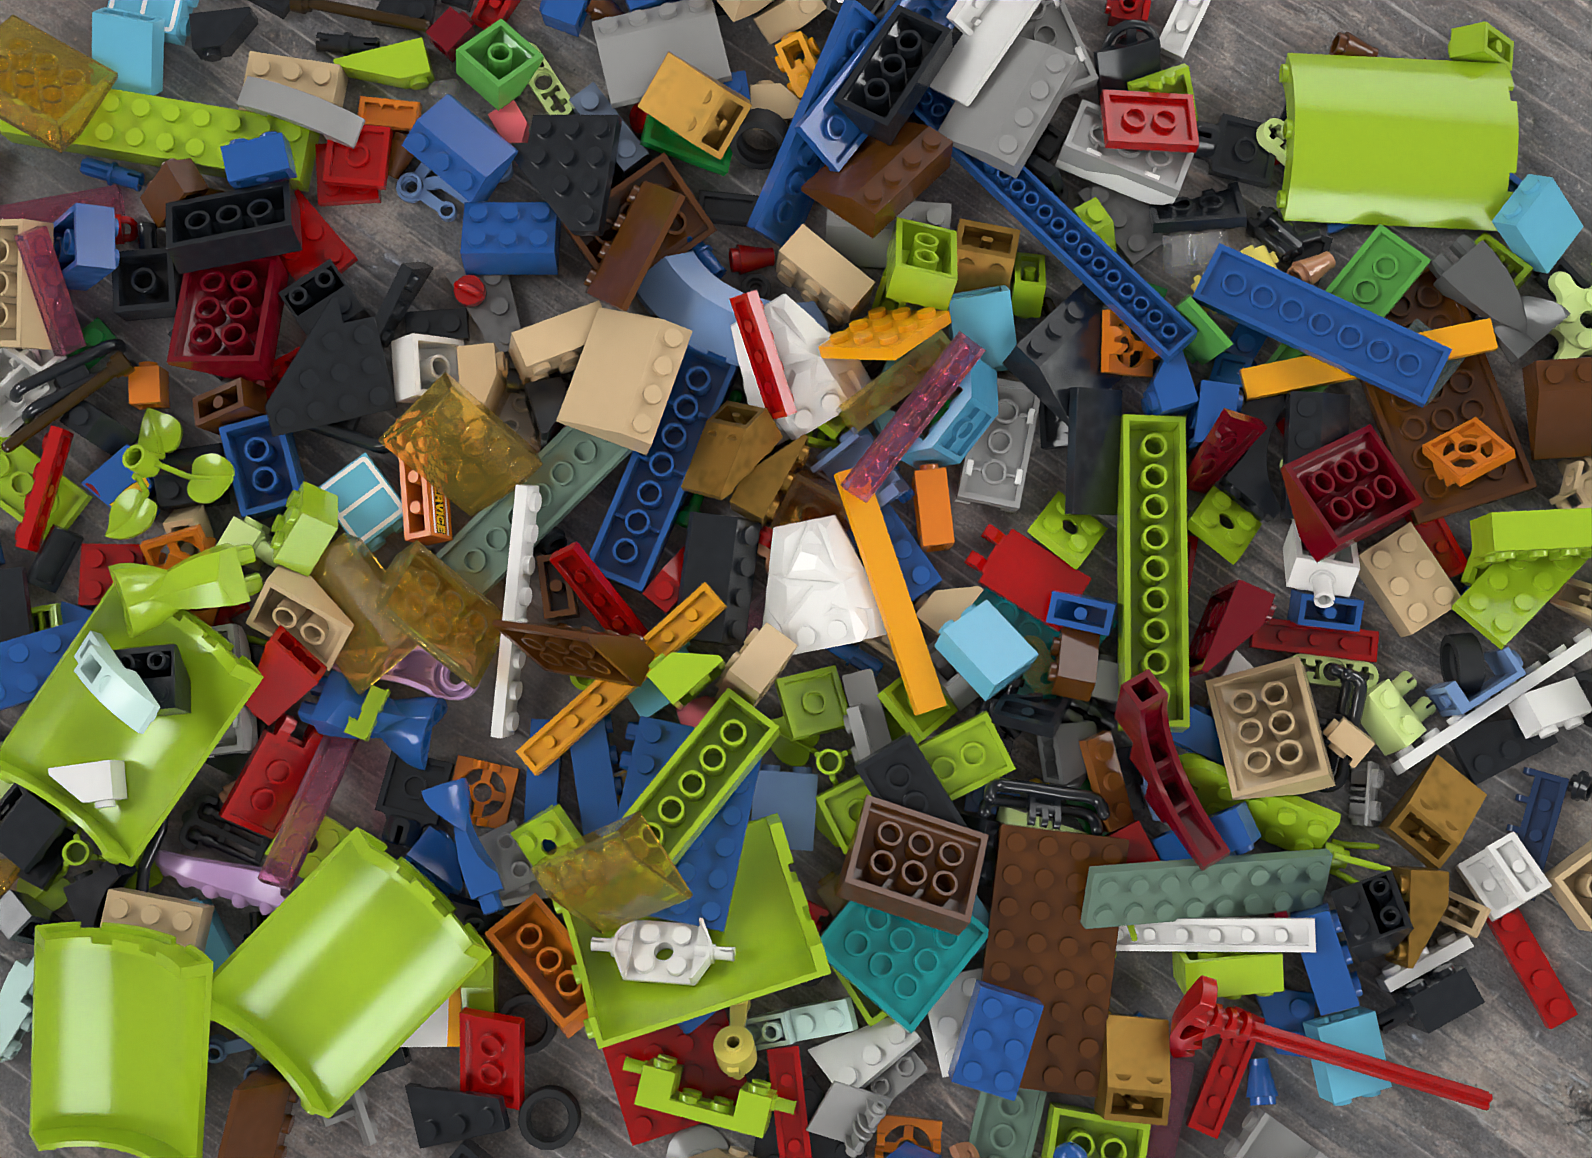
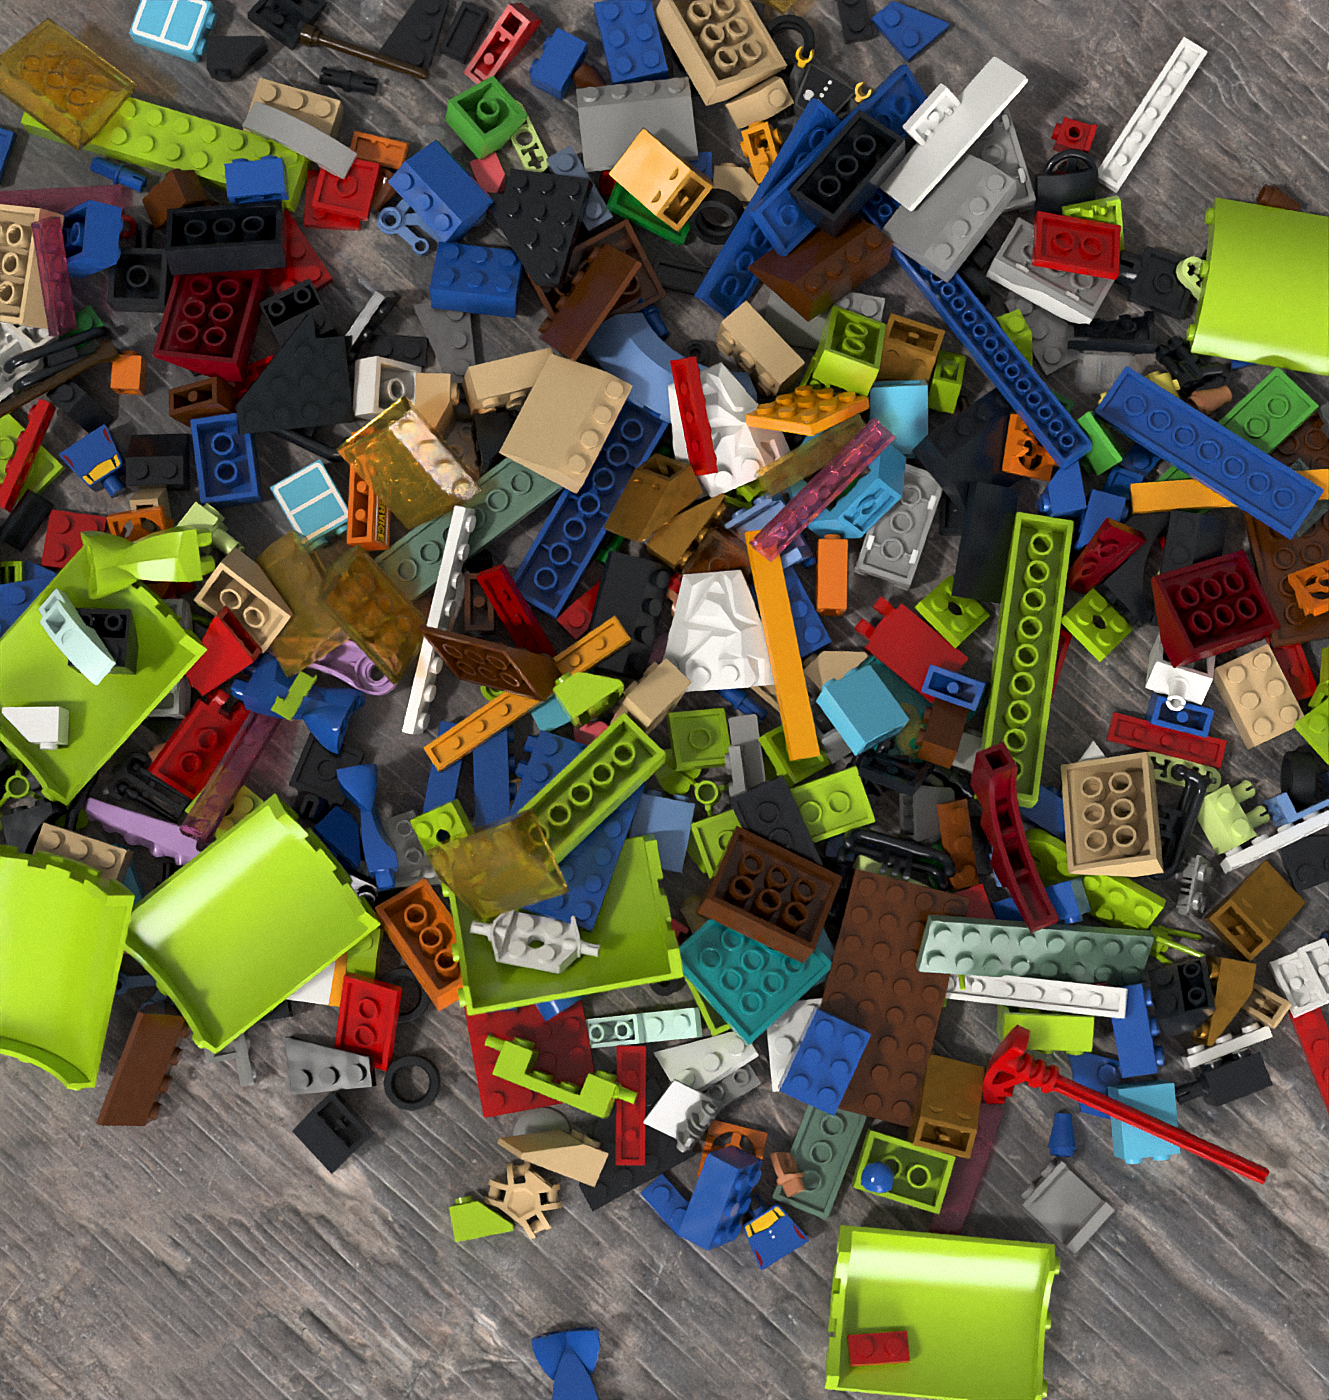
camera: 10 degrees right, 0 degrees up
(131, 47) = (150, 60): medium azure brick -> none
(161, 434) = (131, 420): lime plant -> none
(304, 528) = (258, 520): lime brick -> none
(395, 65) = (392, 106): lime slope -> none
(451, 32) = (445, 82): dark red brick -> none
(469, 290) = (433, 323): red tile -> none
(510, 779) = (413, 770): orange piece -> none
(735, 1044) = (588, 1035): light yellow piece -> none
(750, 258) = (693, 325): red cone -> none
(1220, 1083) = (1026, 1131): red plate -> none
(1228, 621) = (1091, 705): dark red slope -> none
(1348, 740) = (1181, 833): tan brick -> none

